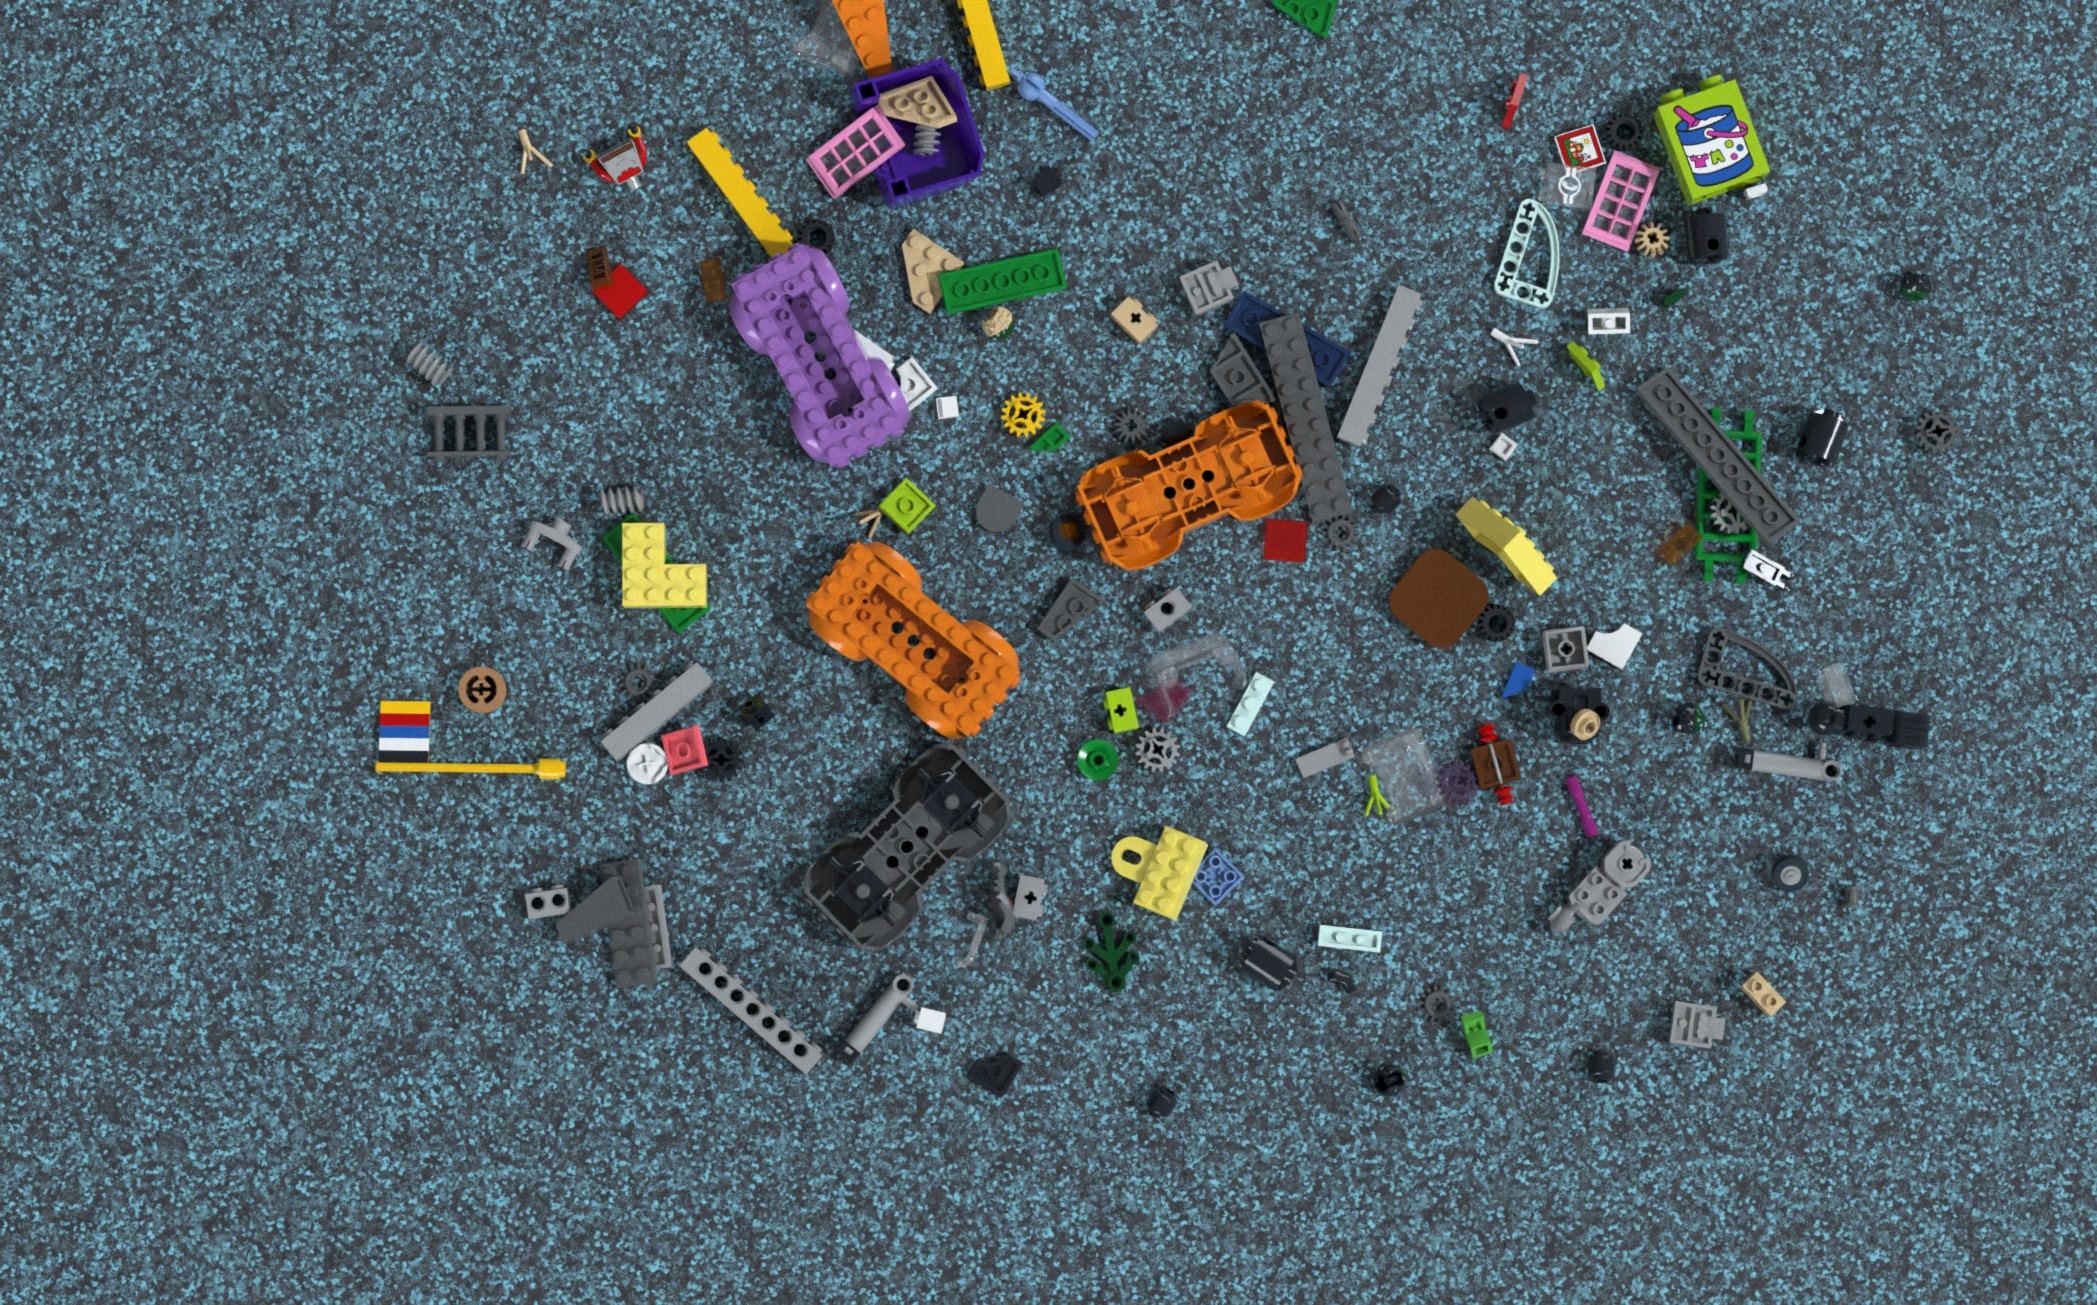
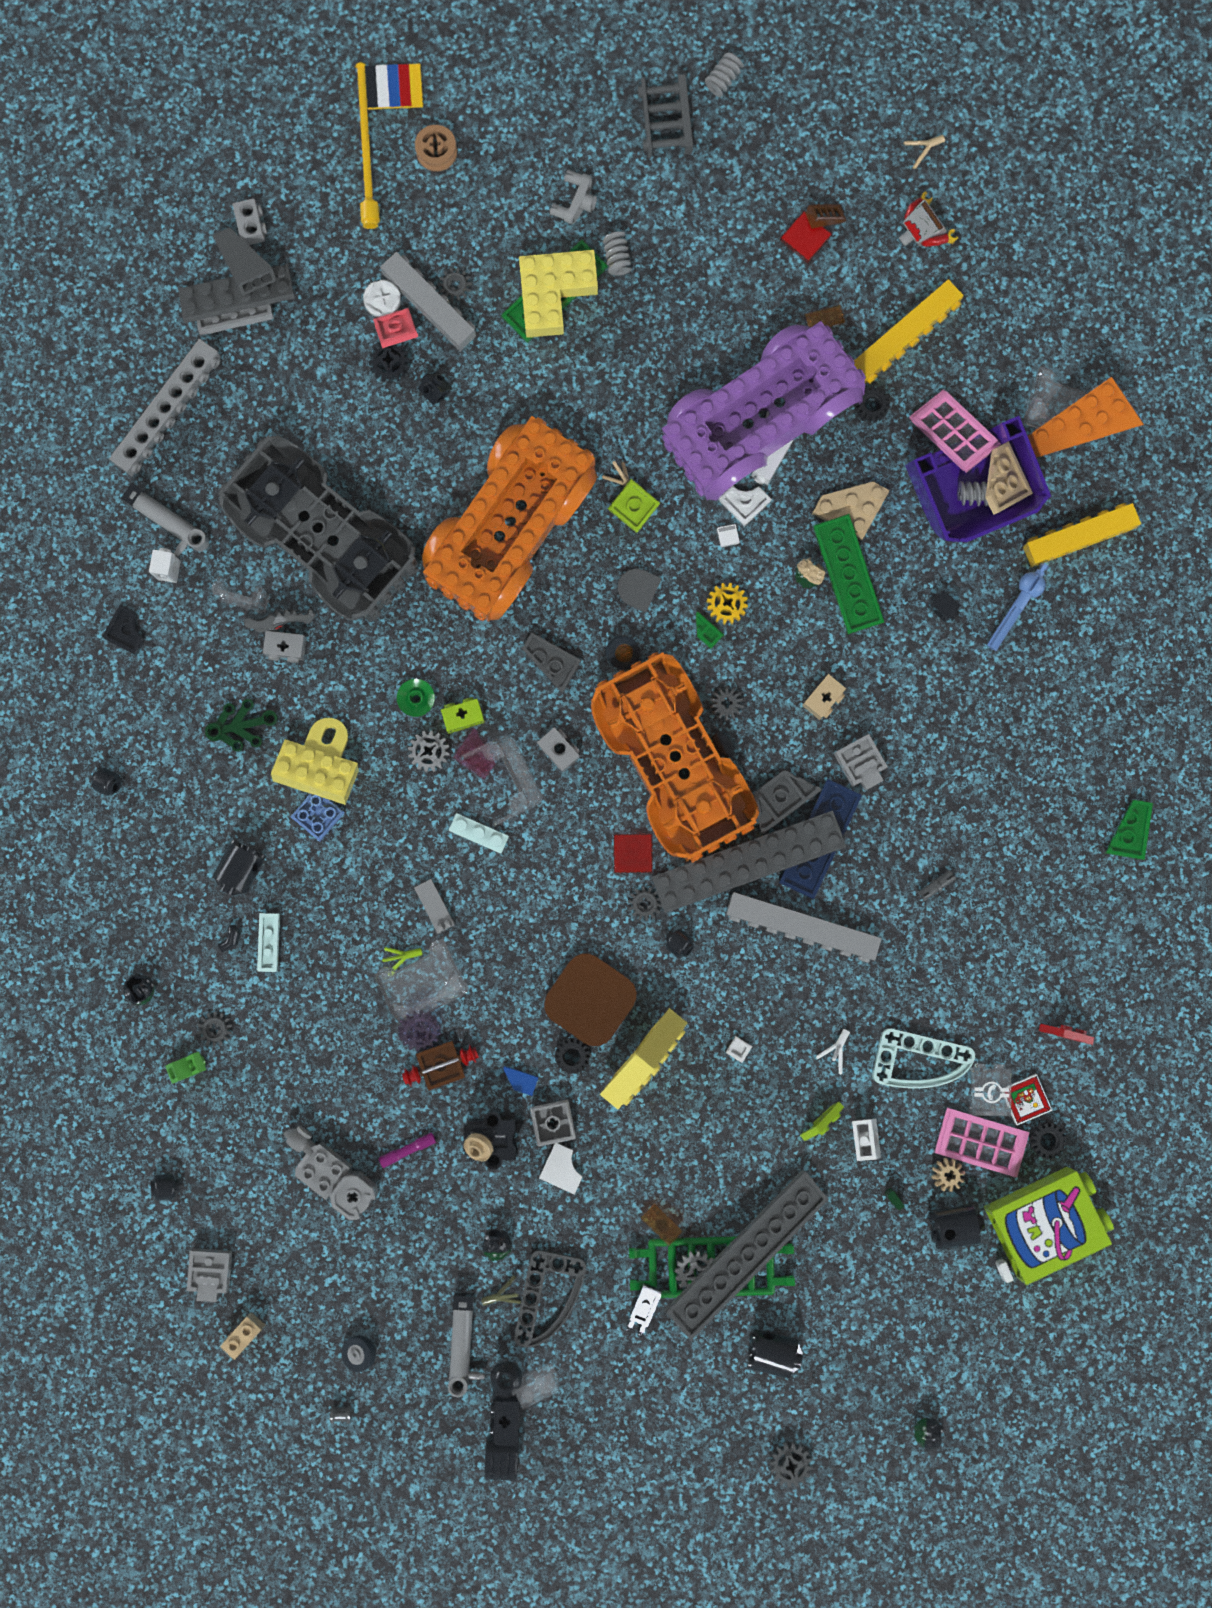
camera: 85 degrees right, 0 degrees up
(1514, 406) = (777, 1056): black cylinder -> none

